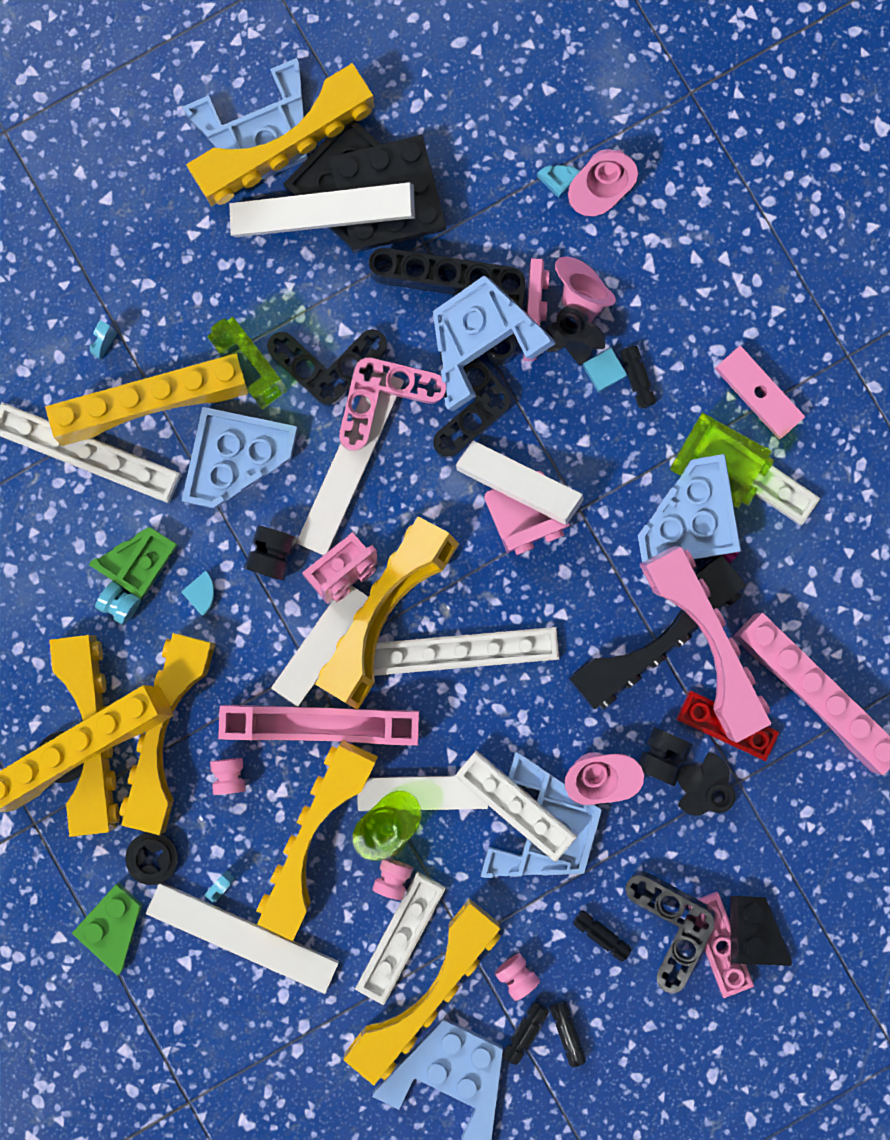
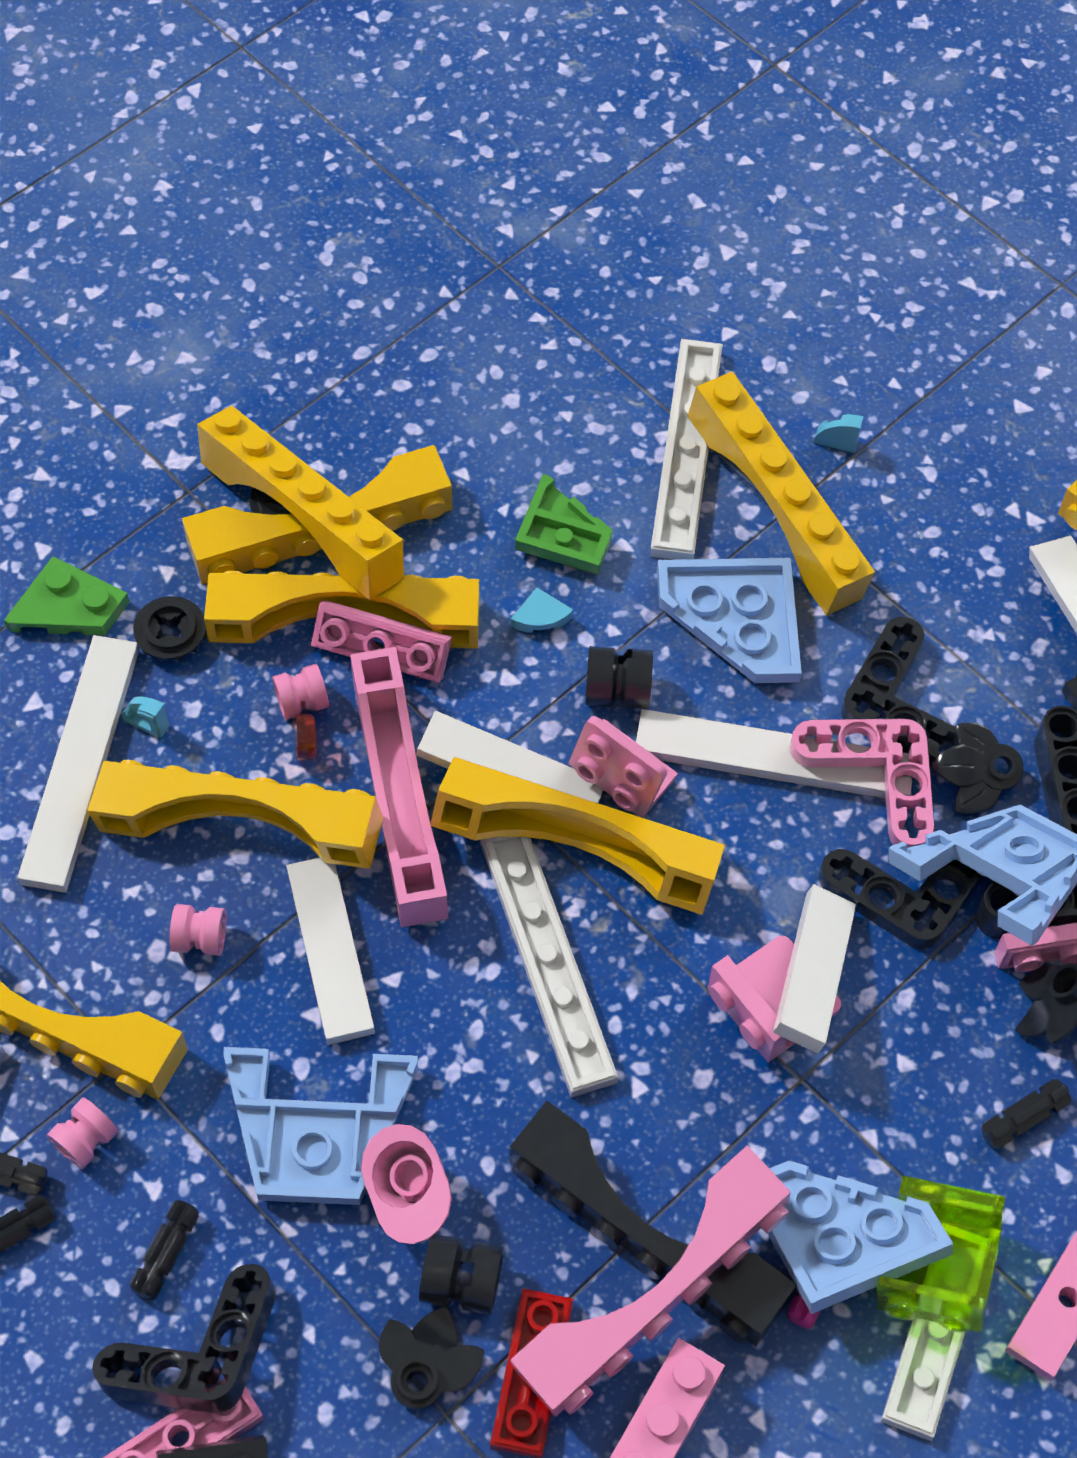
camera: 75 degrees right, 25 degrees down
(117, 603) = (500, 521): medium azure wheel -> none
(200, 711) = (354, 631): none -> bright pink tile
(229, 333) = (848, 618): clear neon green panel -> none
(264, 780) = (304, 737): none -> clear red tile
(387, 826) = (268, 902): clear neon green piece -> none
(393, 332) = (973, 770): none -> black plate
(400, 938) = (113, 964): white tile -> none
(516, 806) = (337, 1071): white tile -> none
(604, 370) = (1019, 1064): medium azure tile -> none

